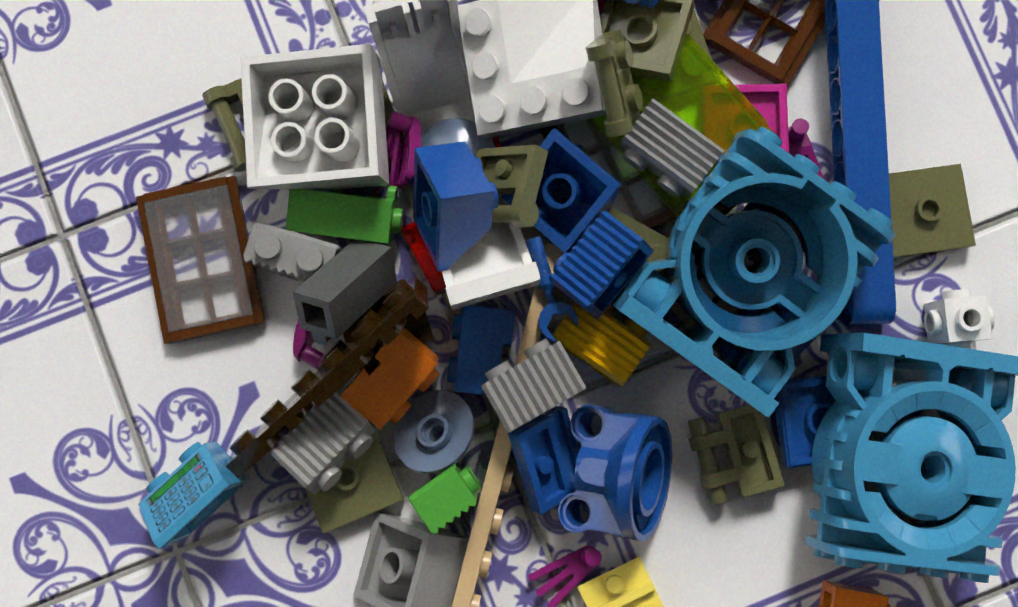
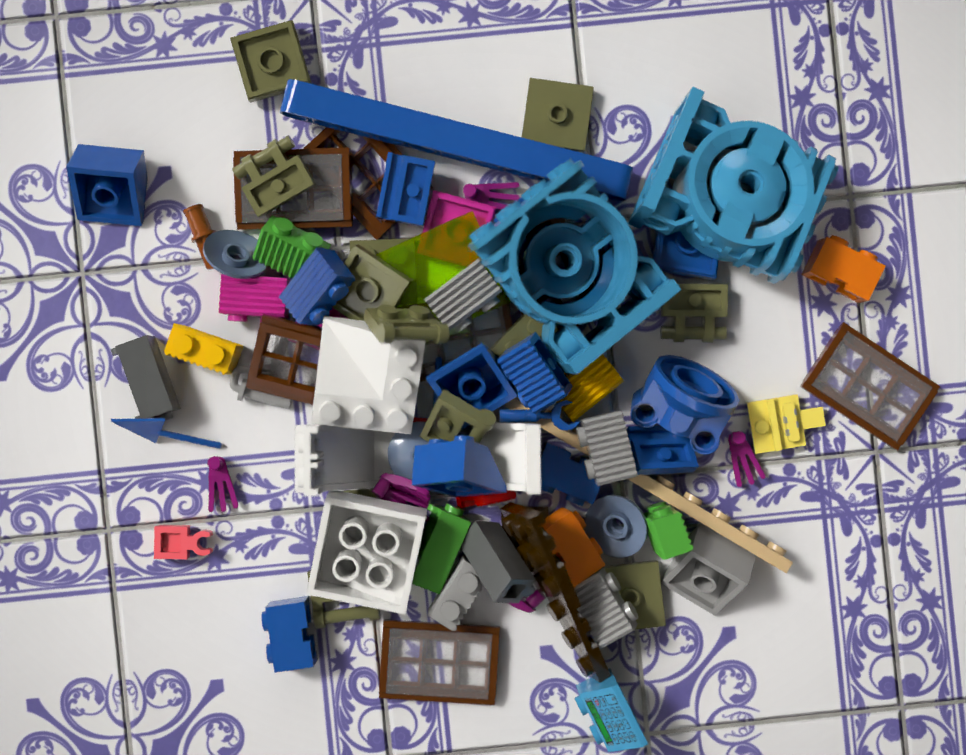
camera: 70 degrees left, 5 degrees up
(185, 64) = (287, 627): none -> blue brick
(777, 48) = (405, 189): none -> blue plate
(959, 319) = (646, 131): white brick -> none

